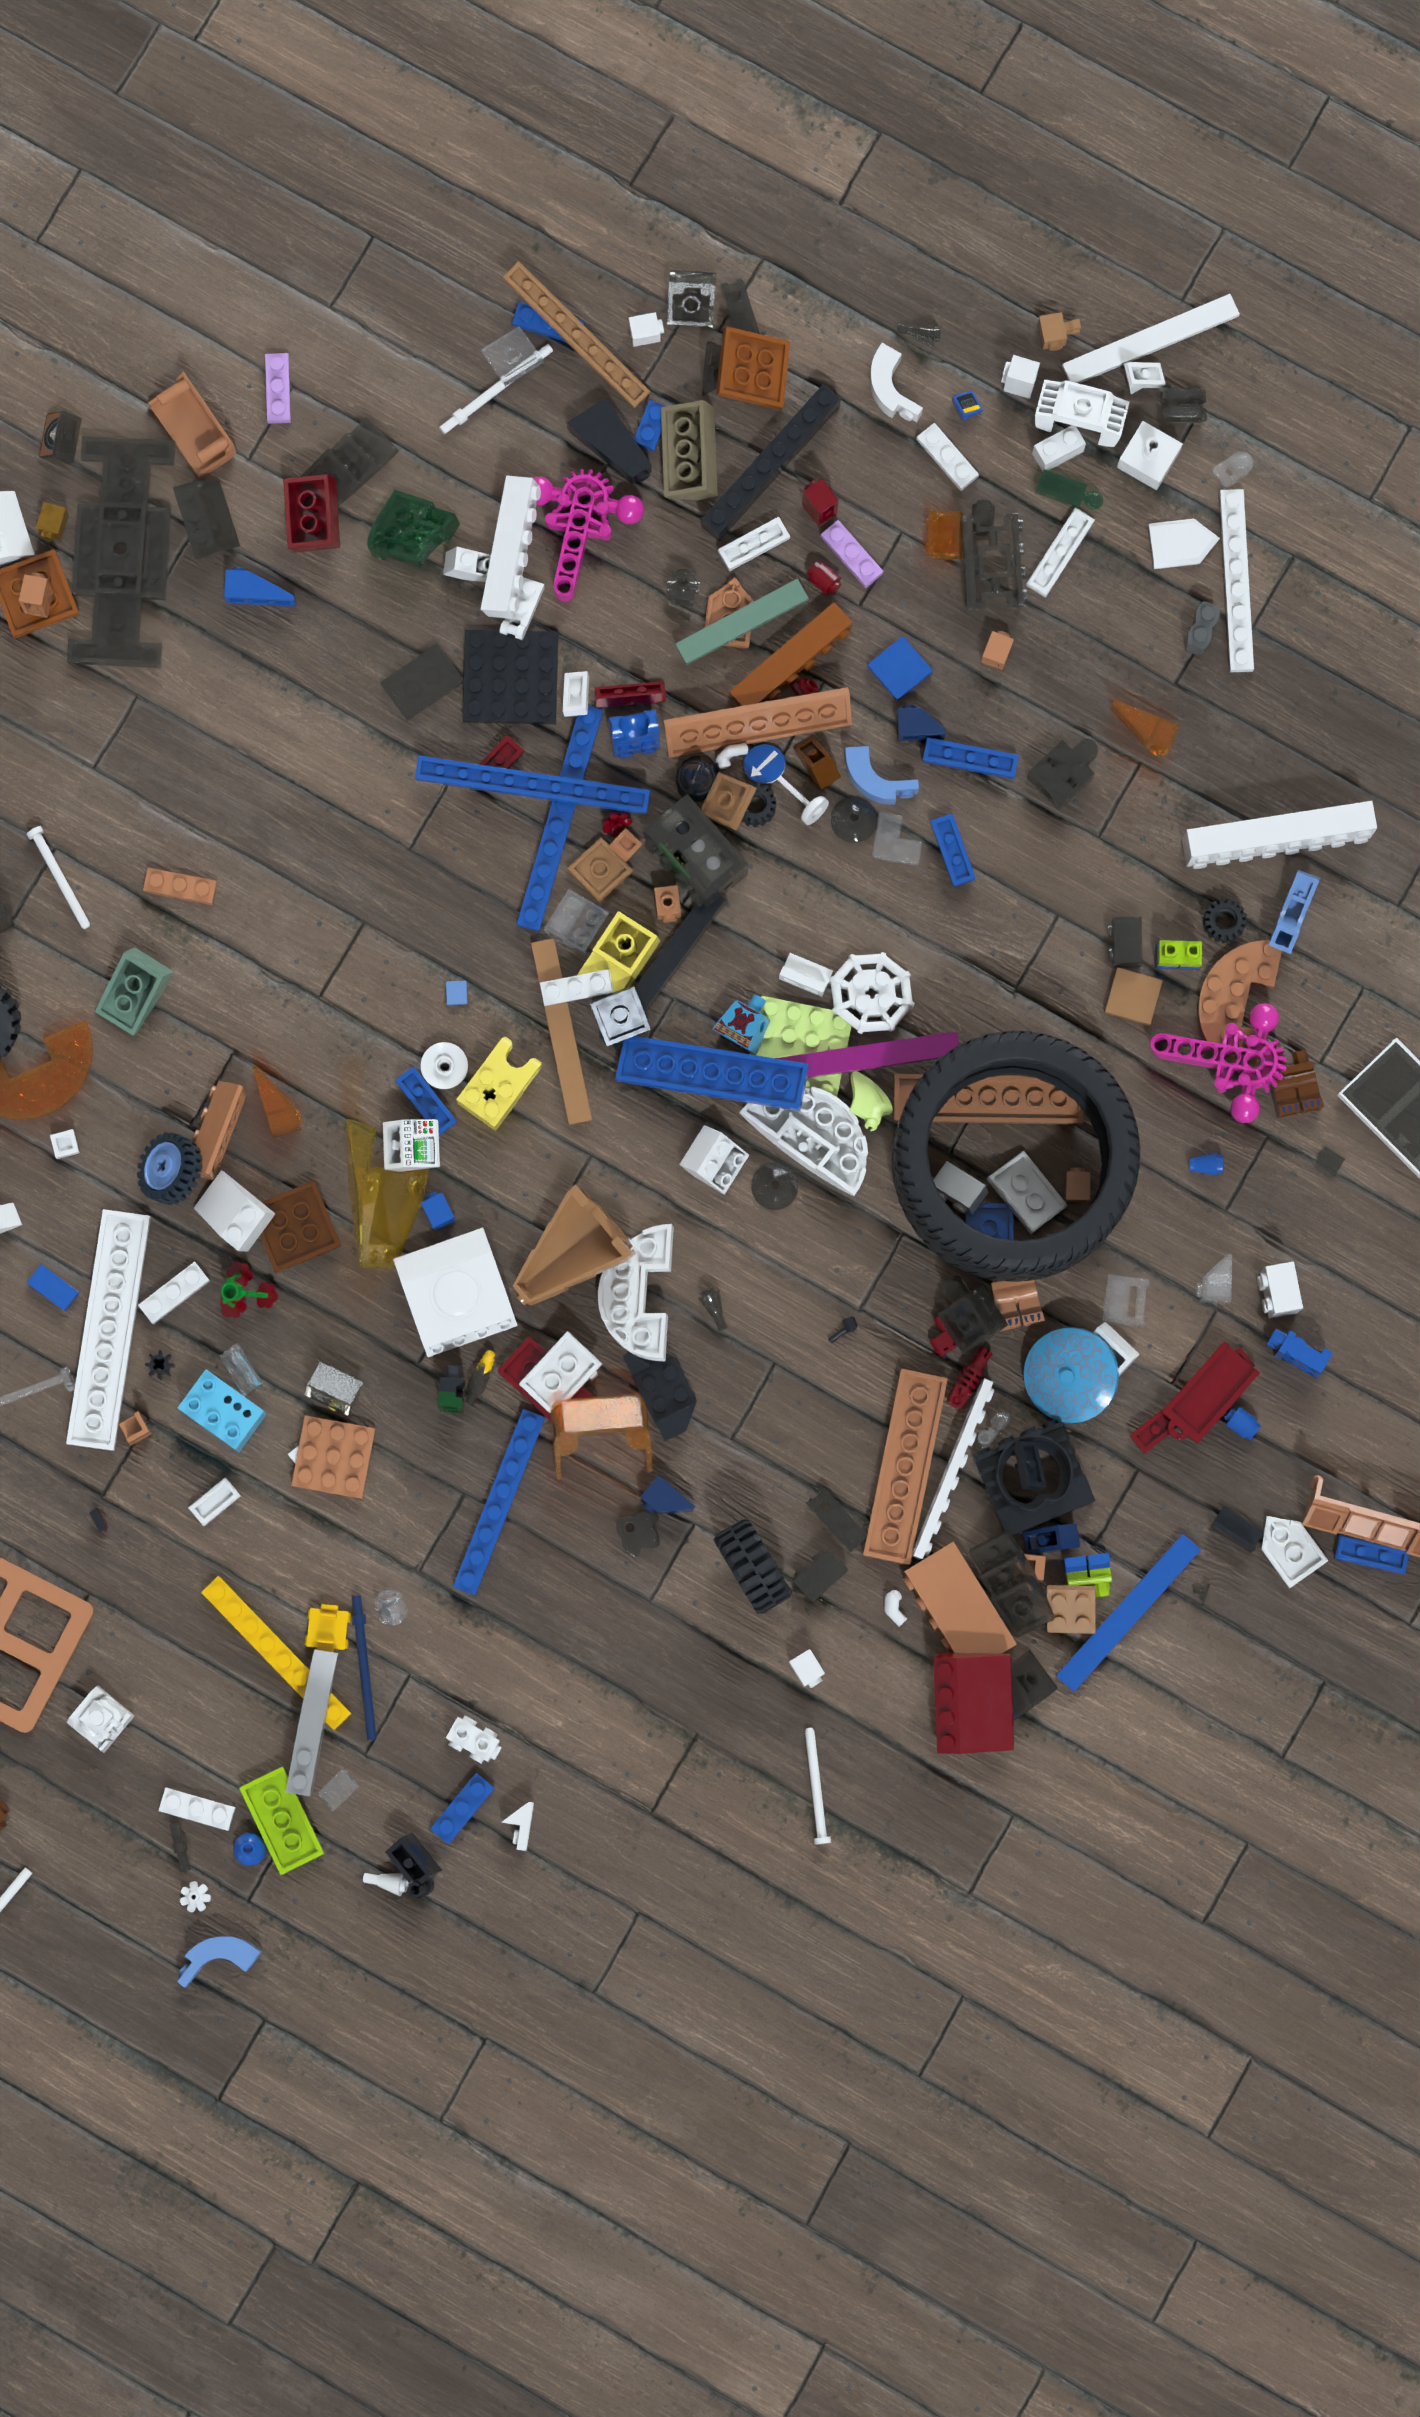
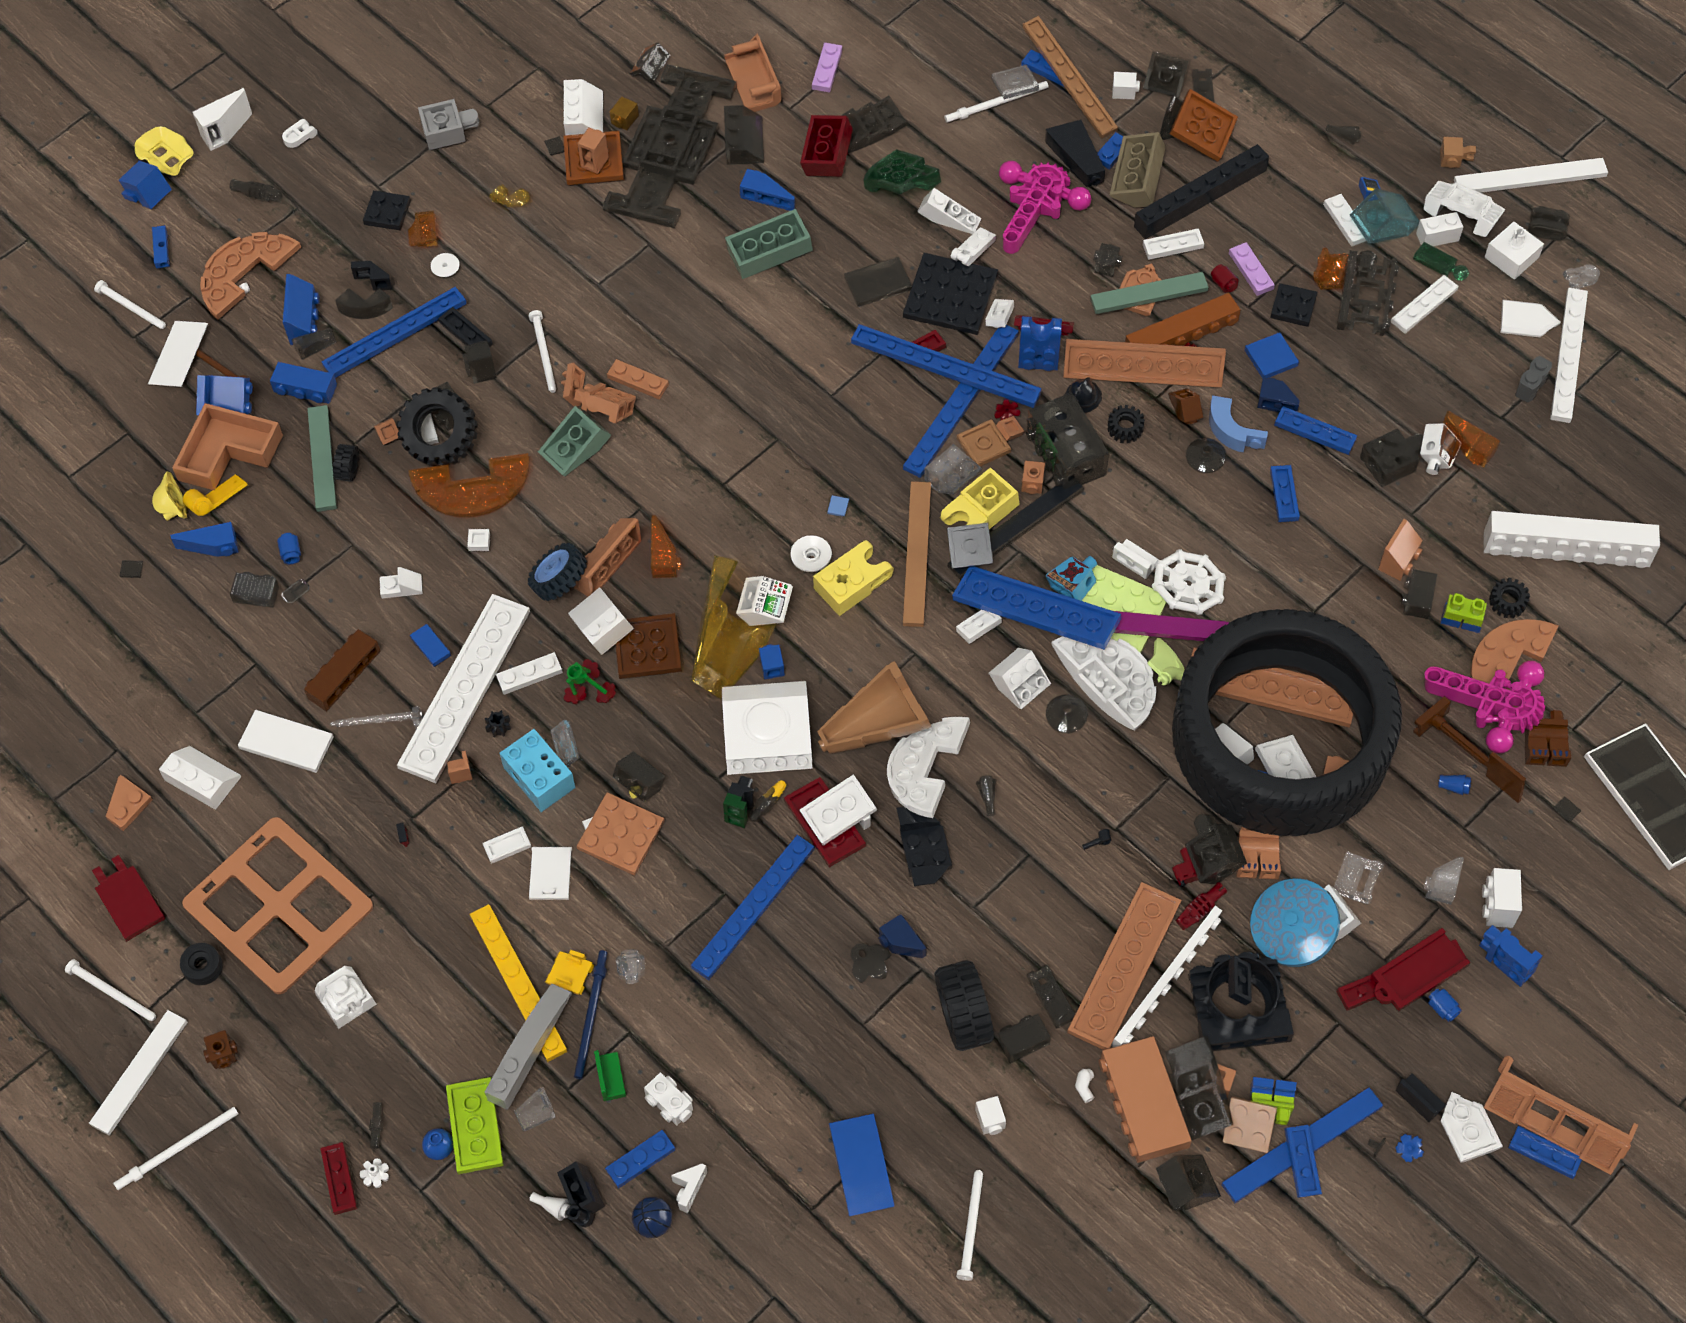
camera: 20 degrees right, 20 degrees down
(109, 915) = (574, 381): none -> nougat plate
(154, 932) = (606, 400): none -> nougat hips
(161, 1913) = (338, 1178): none -> dark red plate
(197, 1809) = (403, 1096): white plate -> none
(226, 1947) = (375, 1222): medium blue arch -> none
(271, 1520) = (550, 873): none -> white container
(281, 667) = (769, 244): none -> sand green brick
(404, 1729) = (610, 1076): none -> green panel
(425, 1099) = (785, 572): blue plate -> none
(494, 1870) = (652, 1217): none -> dark blue piece
(510, 547) = (976, 197): white brick -> none
(577, 987) = (938, 517): white plate -> none
(599, 1416) = (887, 852): clear orange windscreen -> none
(652, 1107) = (978, 625): none -> white plate
(689, 1756) = (861, 1164): none -> blue slope
(728, 801) = (1105, 412): medium nougat tile -> none
(730, 751) = (1114, 382): white arm -> none
(766, 765) = (1146, 399): piece -> none
(819, 501) = (1234, 222): dark red brick -> none
(882, 388) = (1305, 165): white arch -> none
(889, 846) = (1232, 481): clear tile -> none
(911, 591) = (1293, 304): none -> black plate
(973, 1702) = (1138, 1181): dark red slope -> none
(992, 449) = (1384, 216): none -> clear light blue slope
(997, 649) = (1356, 358): nougat brick -> none
(998, 1423) = (1219, 947): clear plate -> none
(1020, 376) = (1419, 173): white piece -> none
(1051, 1539) = (1246, 1059): dark blue slope -> none
(1097, 896) = (1401, 551): none -> nougat slope
(1113, 752) = (1439, 447): none -> white torso
(1132, 1632) = (1303, 1161): none -> blue tile
(1133, 996) = (1416, 638): medium nougat tile -> none
(1143, 375) = (1519, 194): white slope -> none
(1171, 1093) = (1497, 769): none -> reddish brown piece
(1236, 1587) = (1410, 1147): none -> blue plant
(1293, 911) = (1574, 600): medium blue arch -> none

